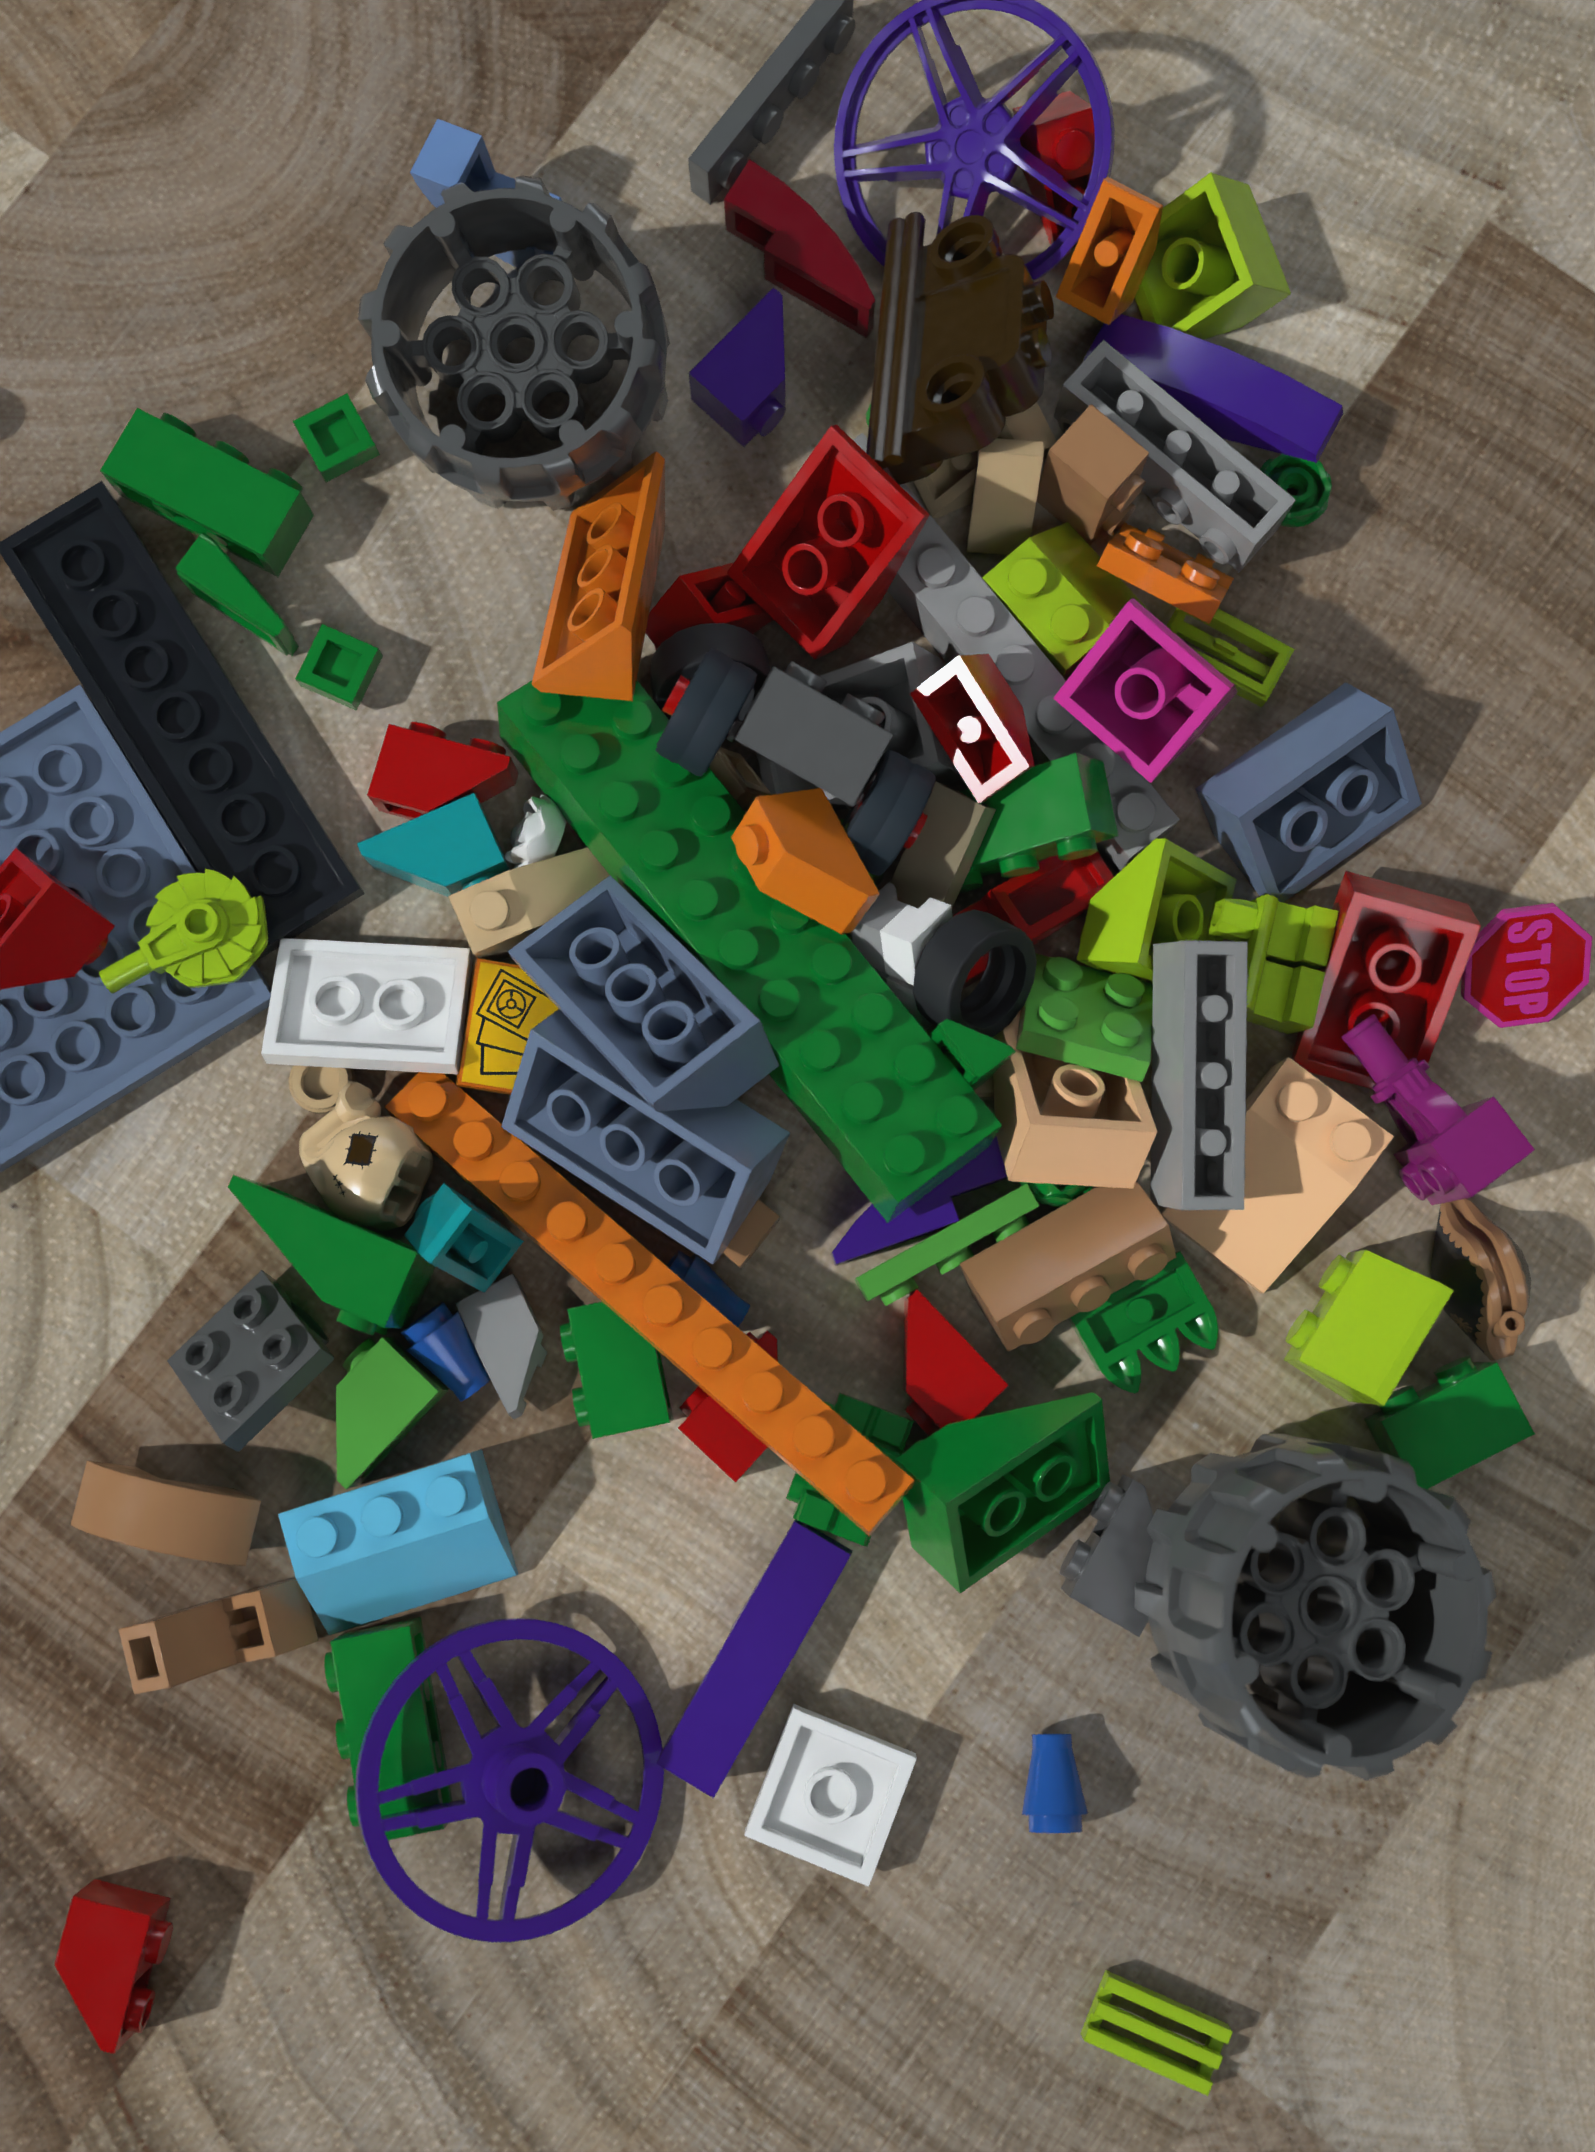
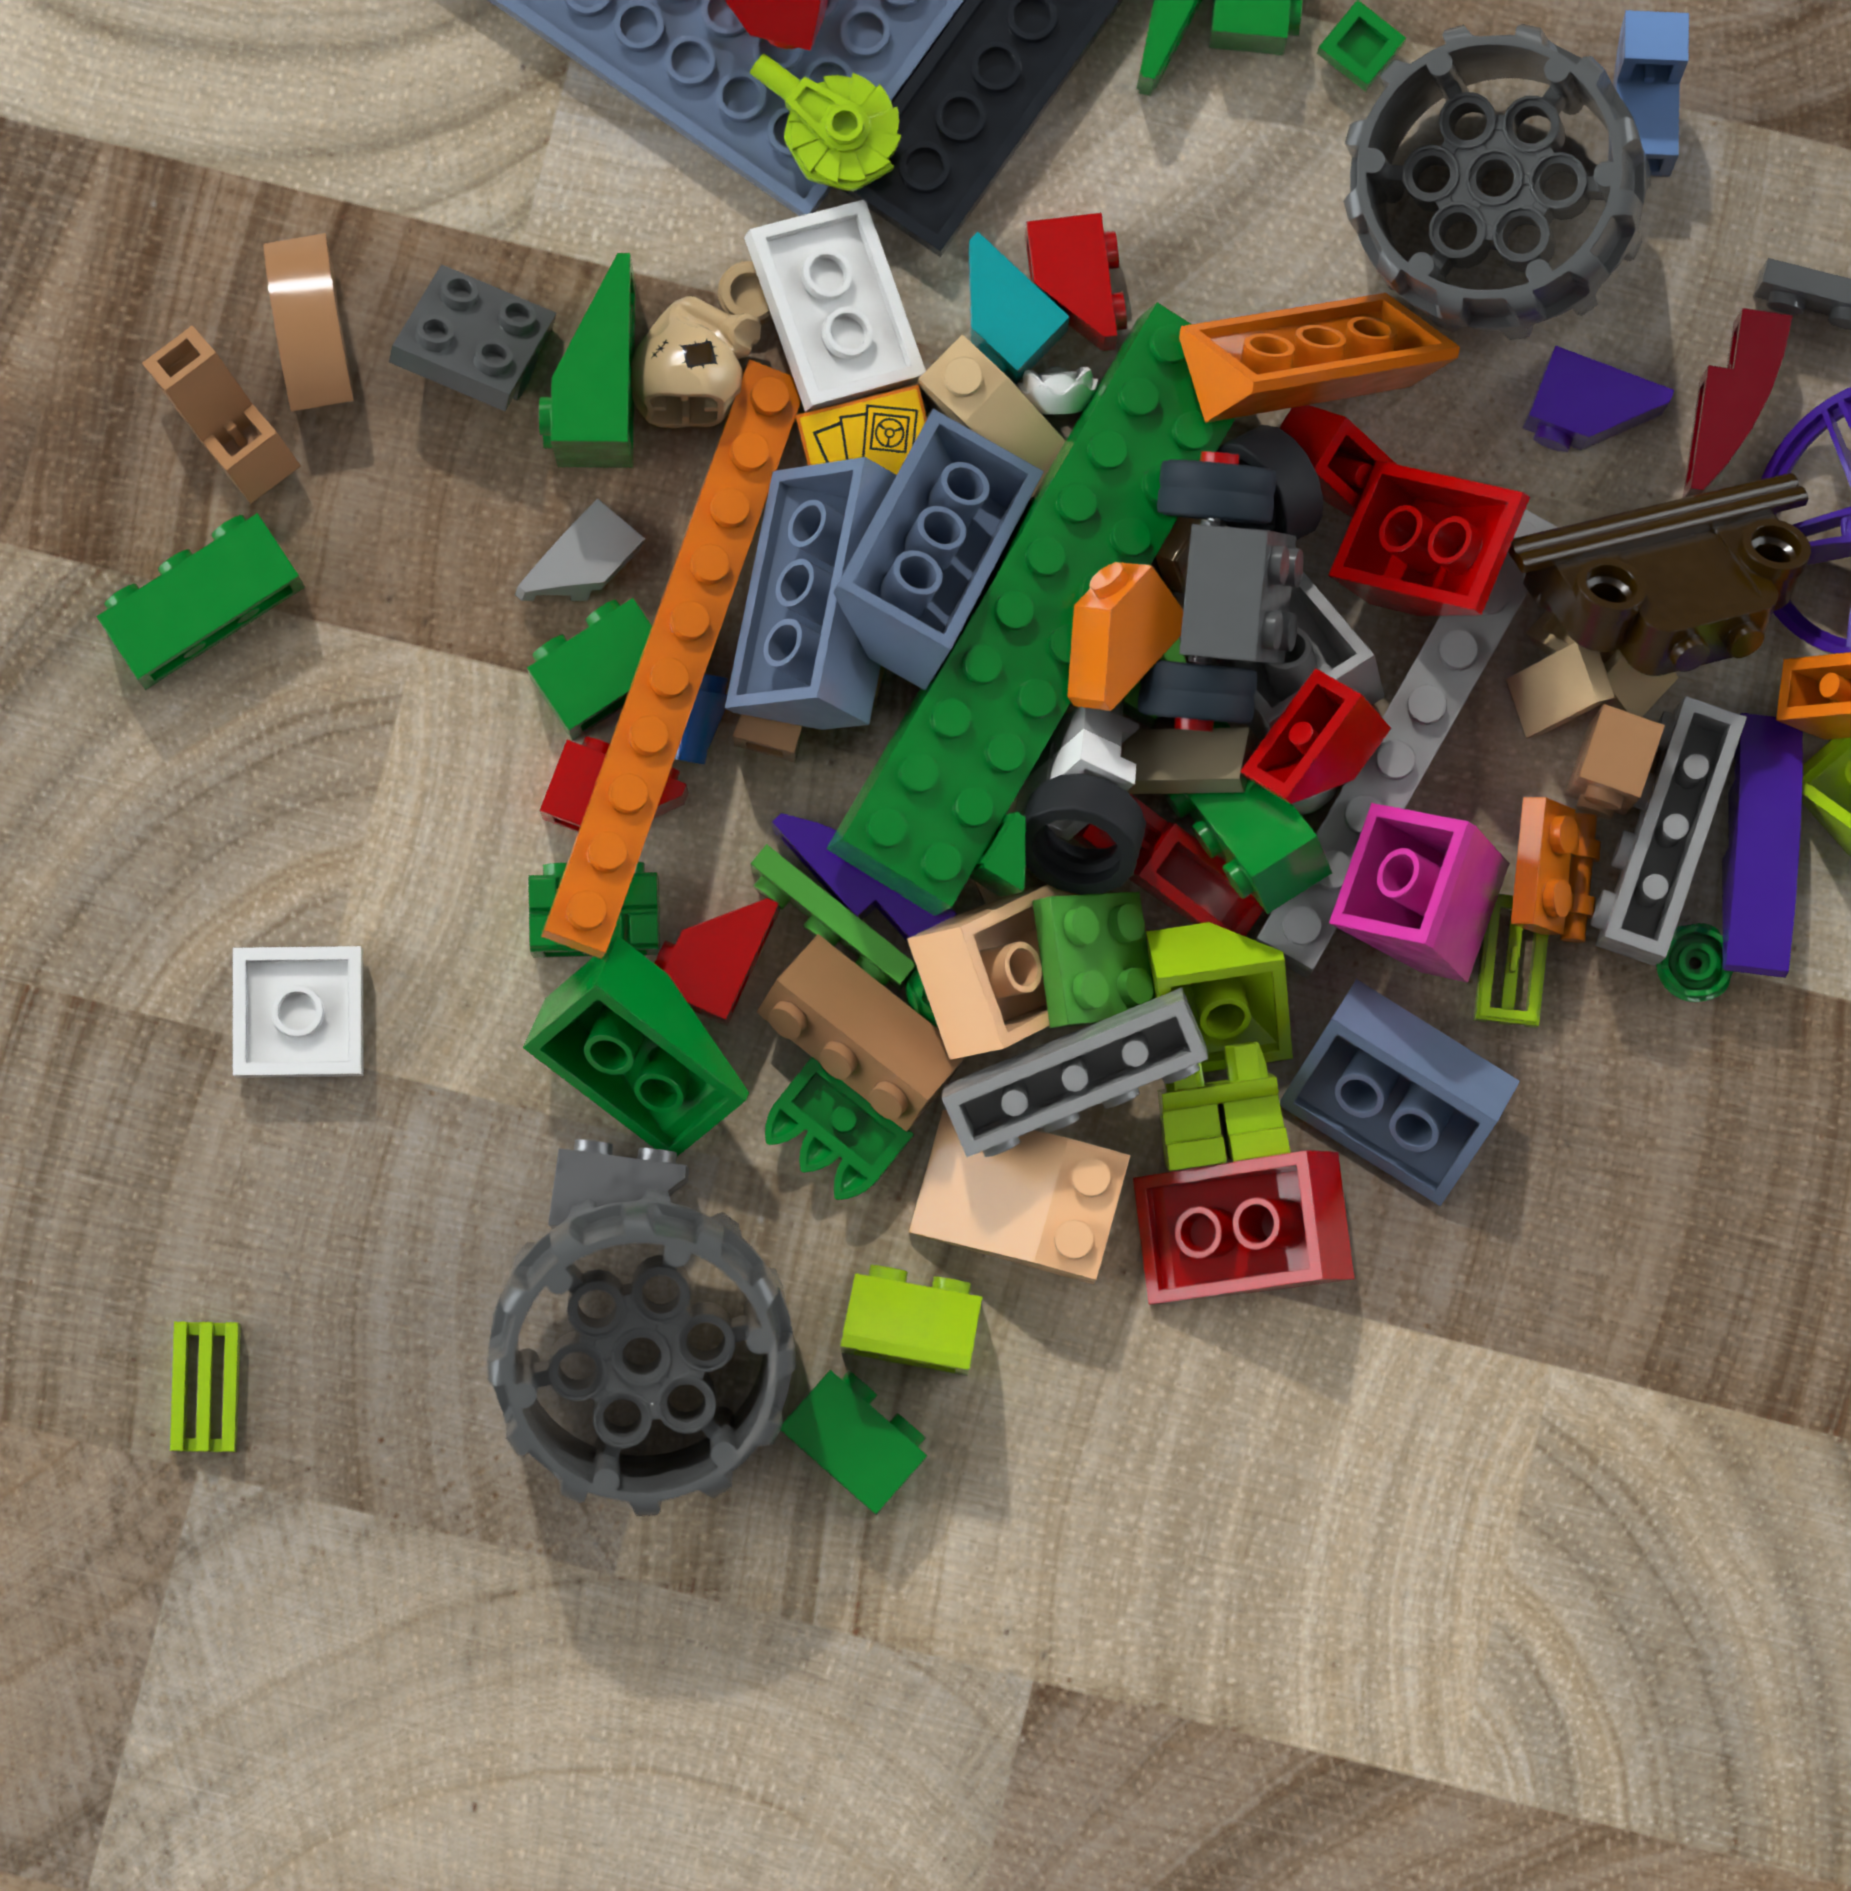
camera: 65 degrees right, 0 degrees up
(339, 667) = (1142, 143): green plate -> none
(379, 1405) = (478, 469): bright green slope -> none
(399, 1543) = (365, 539): medium azure slope -> none
(446, 1350) = (551, 508): blue cone -> none
(462, 1238) = (657, 479): teal slope -> none
(510, 1781) = (203, 721): dark purple wheel -> none
(753, 1657) = (392, 894): dark purple slope -> none
(1053, 1786) = (383, 1208): blue cone -> none
(1059, 594) = (1488, 771): lime slope -> none
(1449, 1147) = (1106, 1341): magenta brick -> none
(1486, 1277) = (1006, 1428): medium nougat hat -> none
(1527, 965) = (1316, 1354): piece -> none

